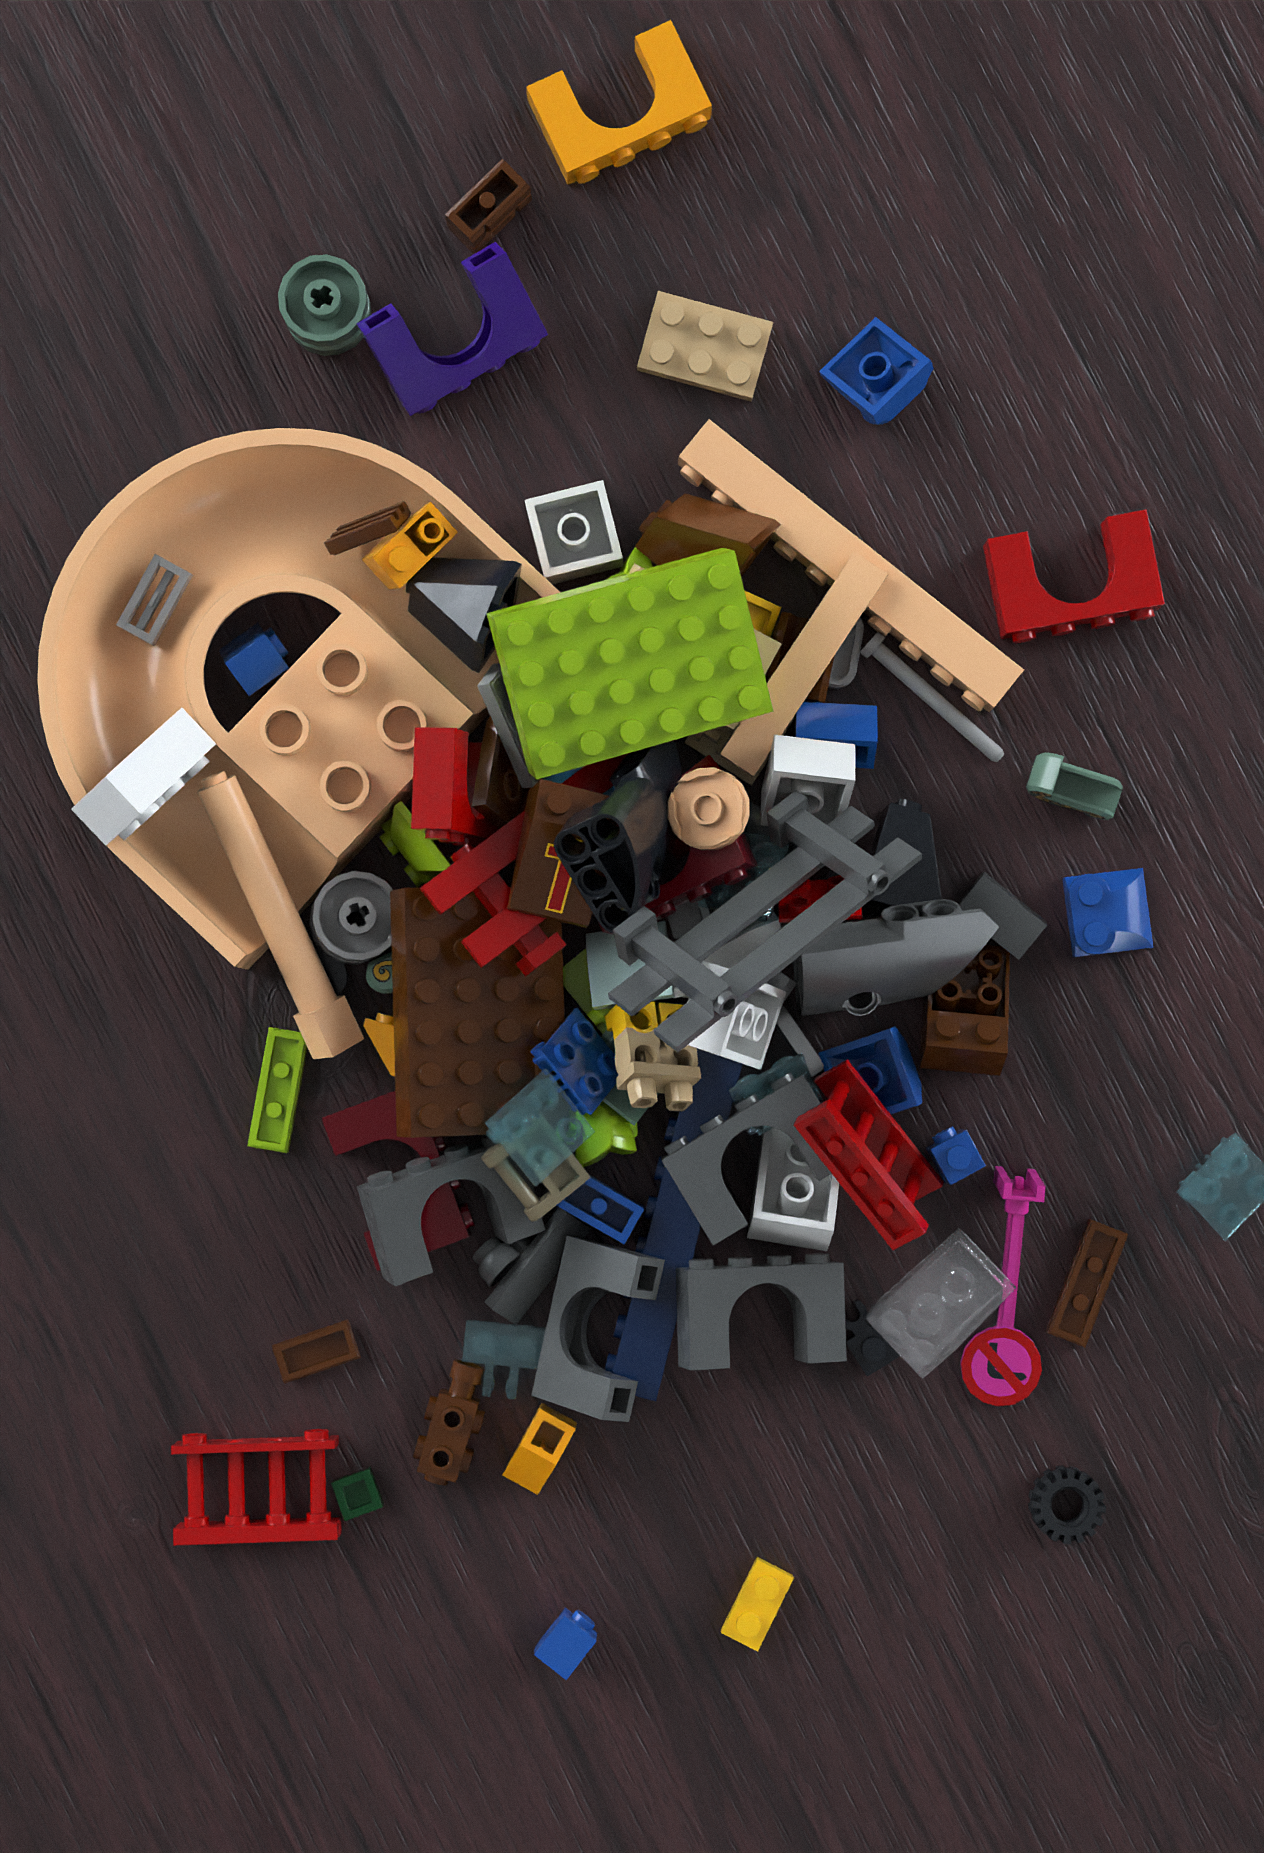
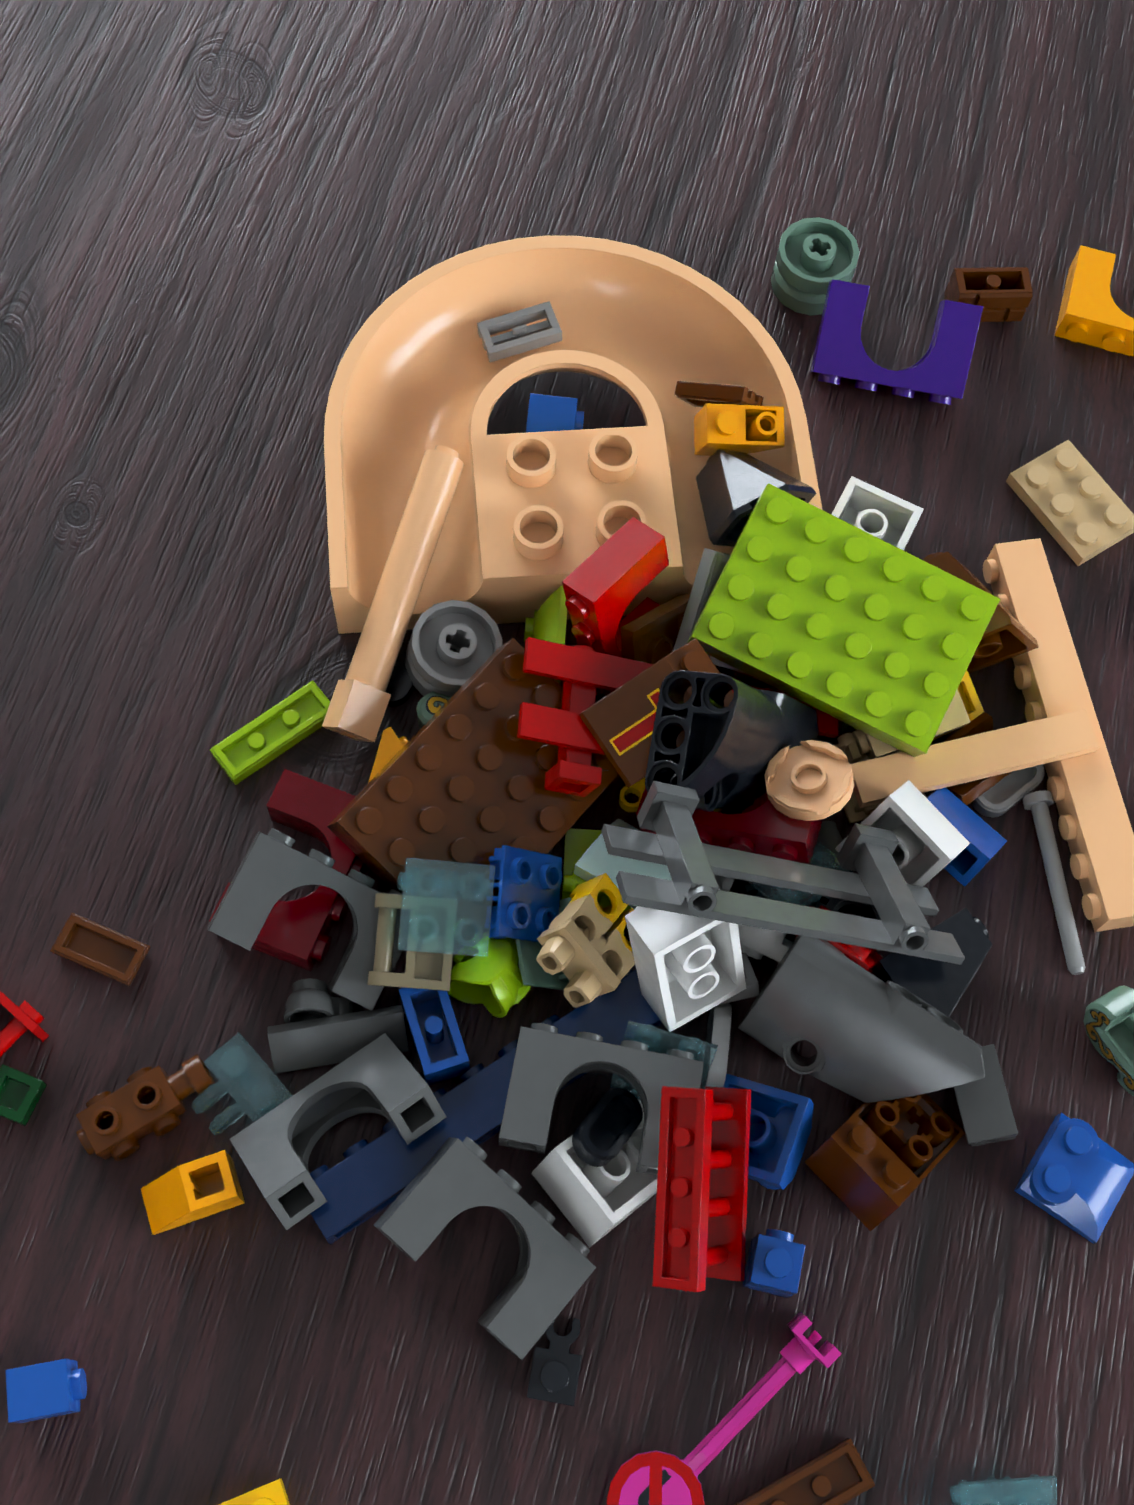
camera: 35 degrees right, 20 degrees down
(145, 779) = (396, 407): white brick -> none
(773, 1167) = (607, 1127): none -> black tile
(940, 1303) = (651, 1385): clear slope -> none

